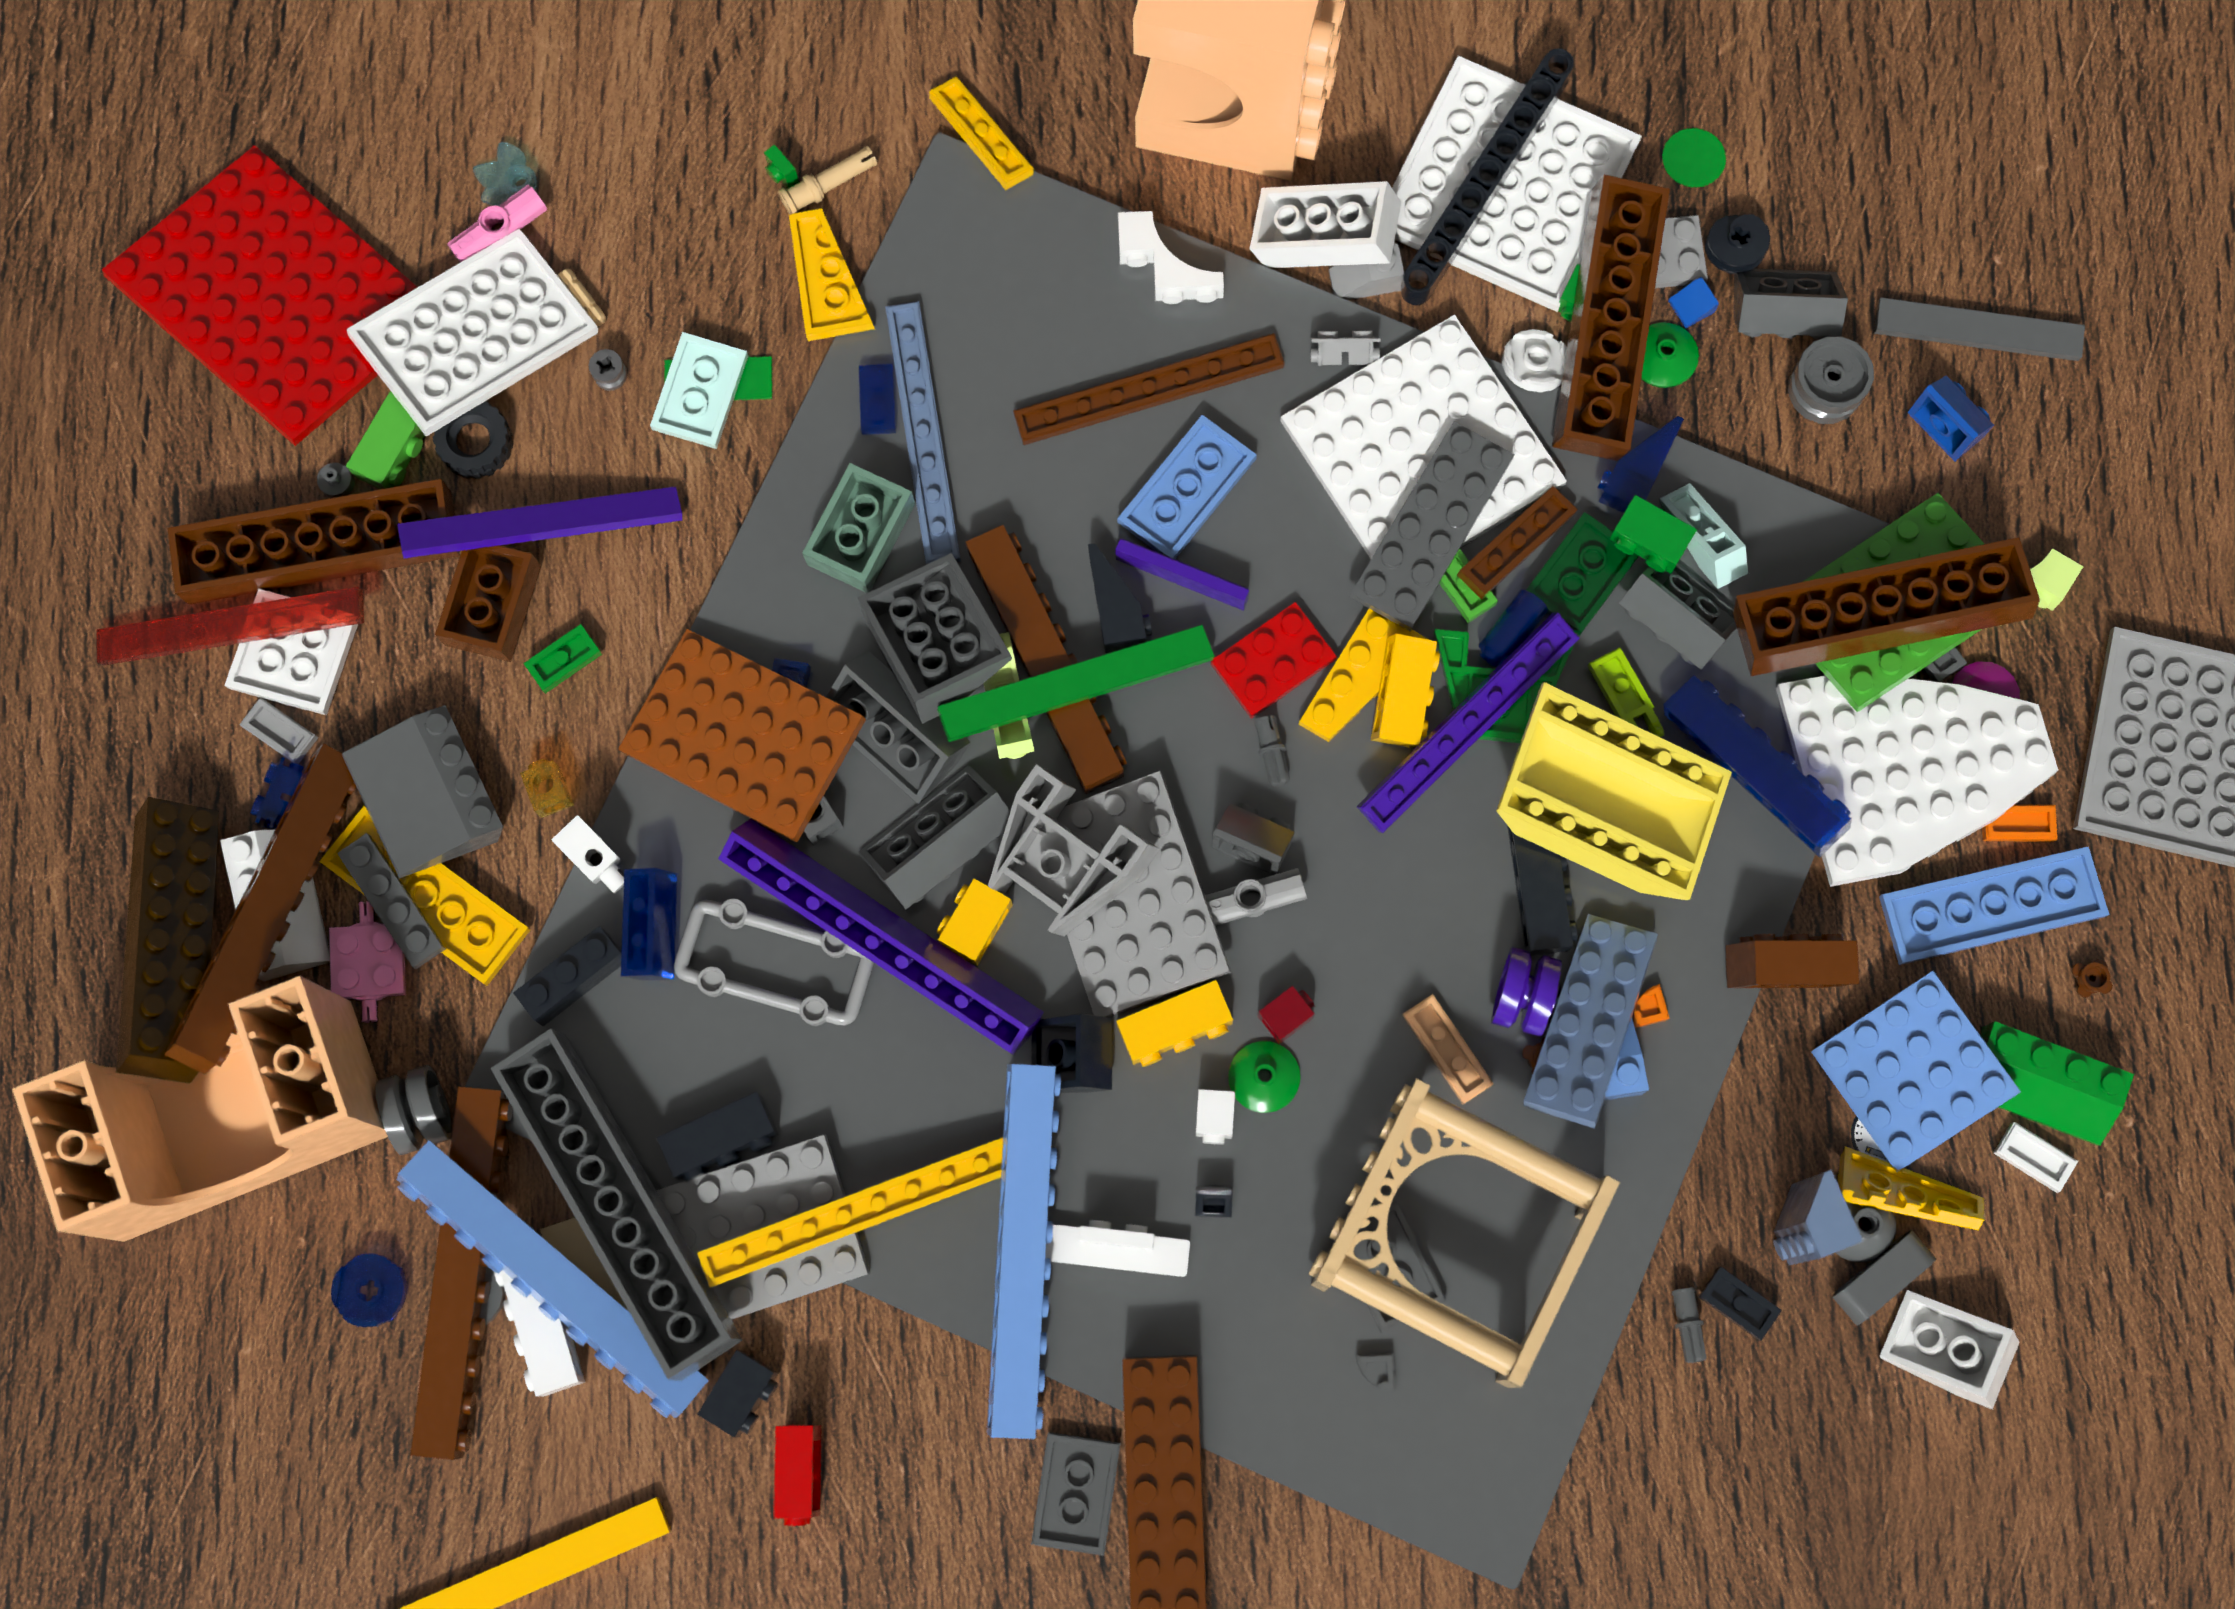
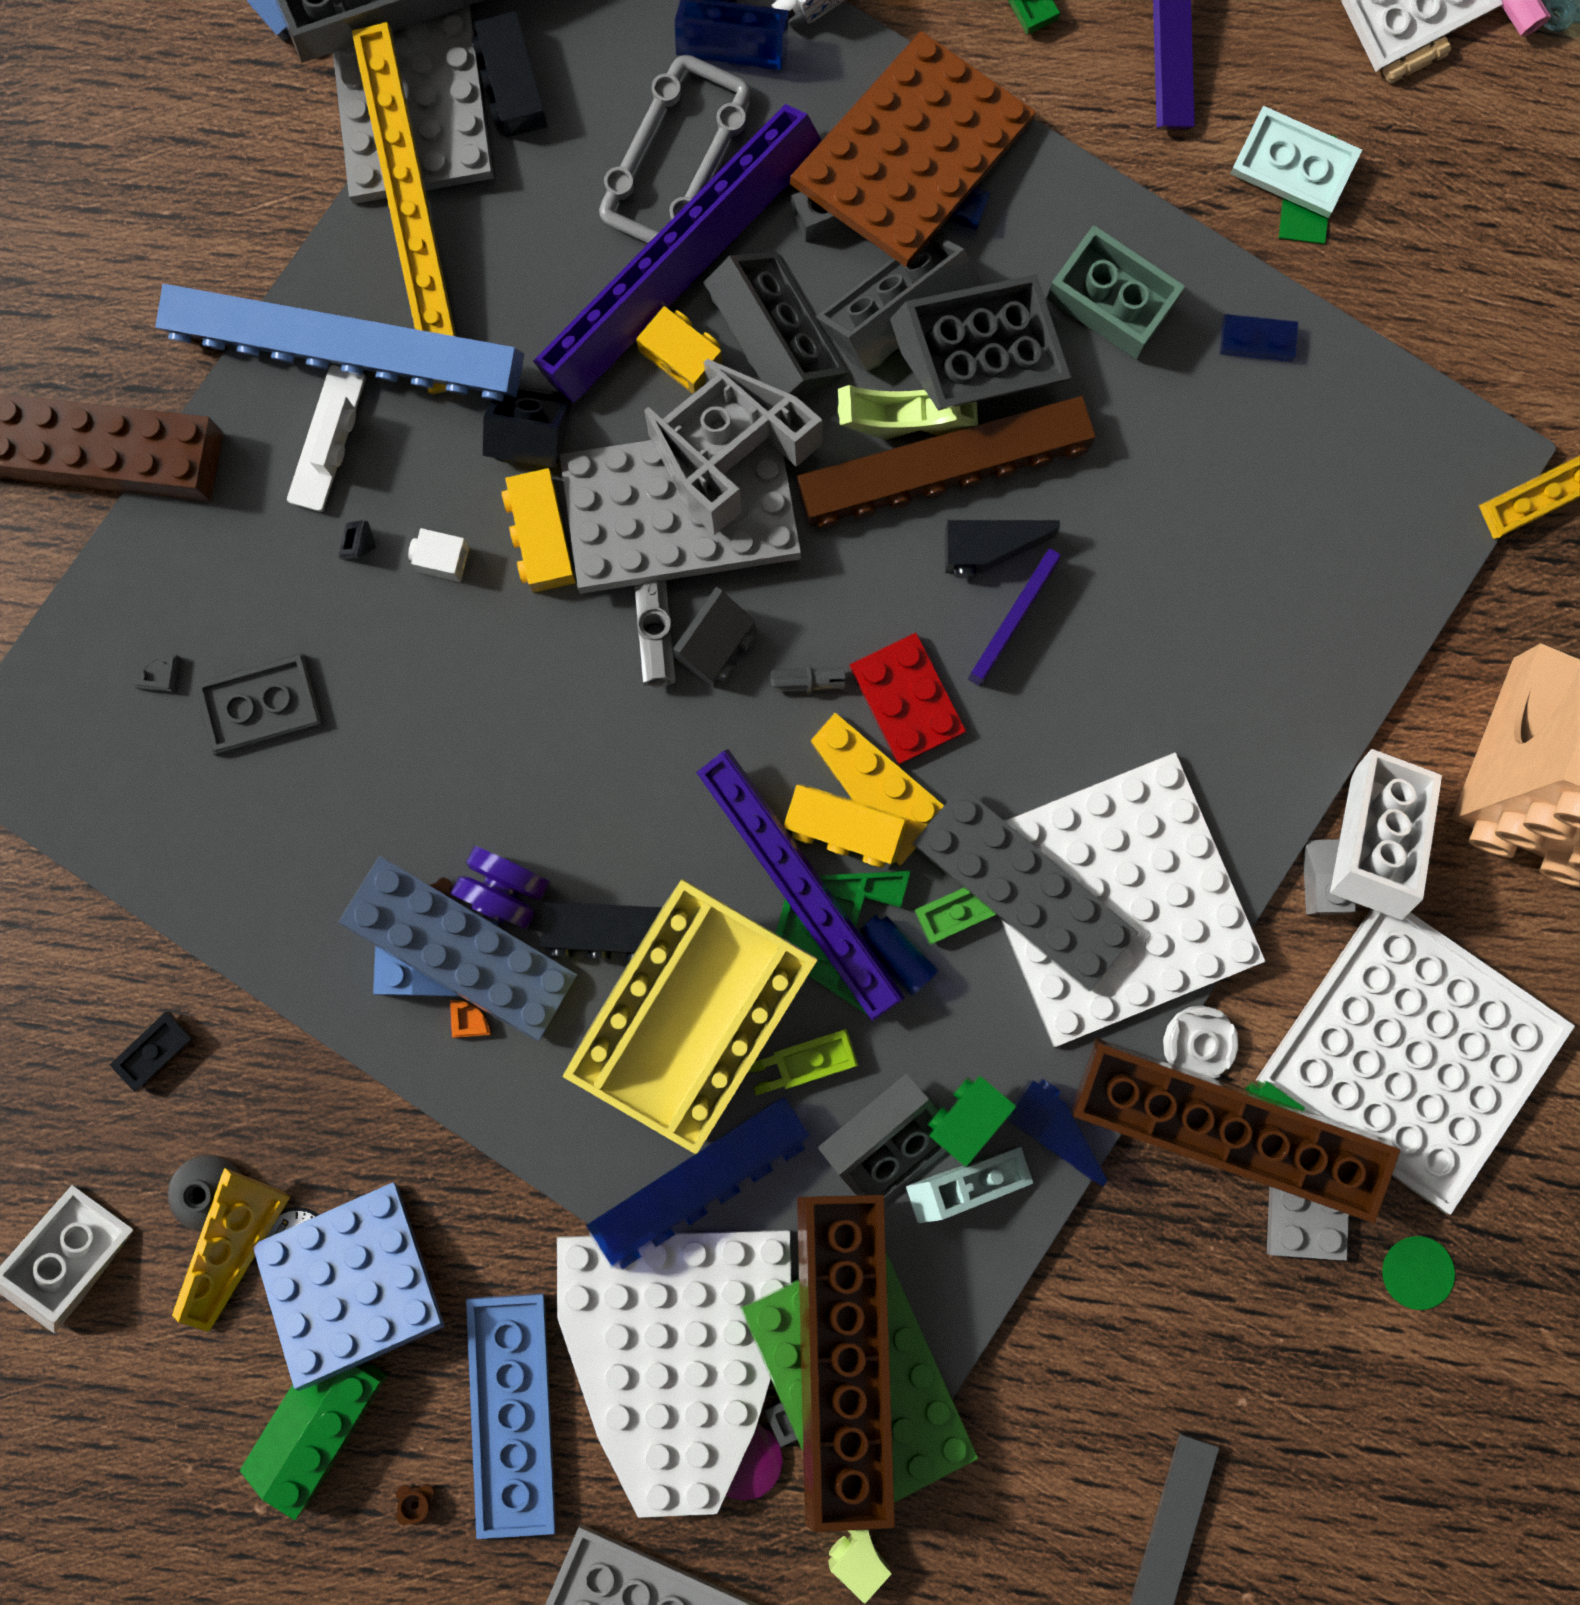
camera: 95 degrees right, 5 degrees up
(610, 377) = (1330, 84): flat silver wheel -> none
(739, 1394) = (260, 63): black brick -> none
(780, 168) = (1536, 275): green plate -> none
(797, 1473) = (172, 104): red window -> none
(813, 187) = (1509, 308): tan pin -> none
(825, 284) = (1393, 304): yellow wing -> none
(922, 431) = (1215, 378): sand blue tile -> none
(1075, 683) = (908, 481): green tile -> none
(1075, 1493) = (106, 367): dark grey tile -> none
(1148, 389) = (1228, 621): reddish brown tile -> none
(1173, 278) = (1395, 634): white arch -> none
(1187, 488) = (1109, 639): medium blue plate -> none
(1260, 1095) = (477, 632): green dish -> none
(1287, 1013) = (528, 644): dark red brick -> none
(1343, 1270) = (381, 755): tan arch -> none
(1358, 346) = (1247, 820): light grey hinge -> none
(1447, 1049) = (464, 803): light nougat tile -> none
(1492, 162) = (1440, 1031): black beam -> none
(1517, 542) = (992, 976): reddish brown plate -> none
(1581, 573) = (946, 1039): dark green plate -> none
(1671, 369) = (1169, 1193): green dish -> none
(1689, 1325) = (141, 995): dark grey axle -> none
(1694, 302) = (1243, 1233): blue slope -> none
(1737, 243) = (1318, 1310): black piece -> none
(1789, 303) = (1228, 1341): dark grey slope -> none
(1792, 961) = (479, 1175): reddish brown brick -> none
(1814, 1221) = (192, 1130): sand blue slope -> none
(1830, 380) = (1144, 1383): dark grey wheel -> none
(1884, 1277) = (146, 1206): dark grey beam -> none
(1950, 417) = (1064, 1496): blue slope -> none
(2024, 824) = (594, 1473): orange tile -> none
(2035, 1157) = (240, 1397): white tile -> none

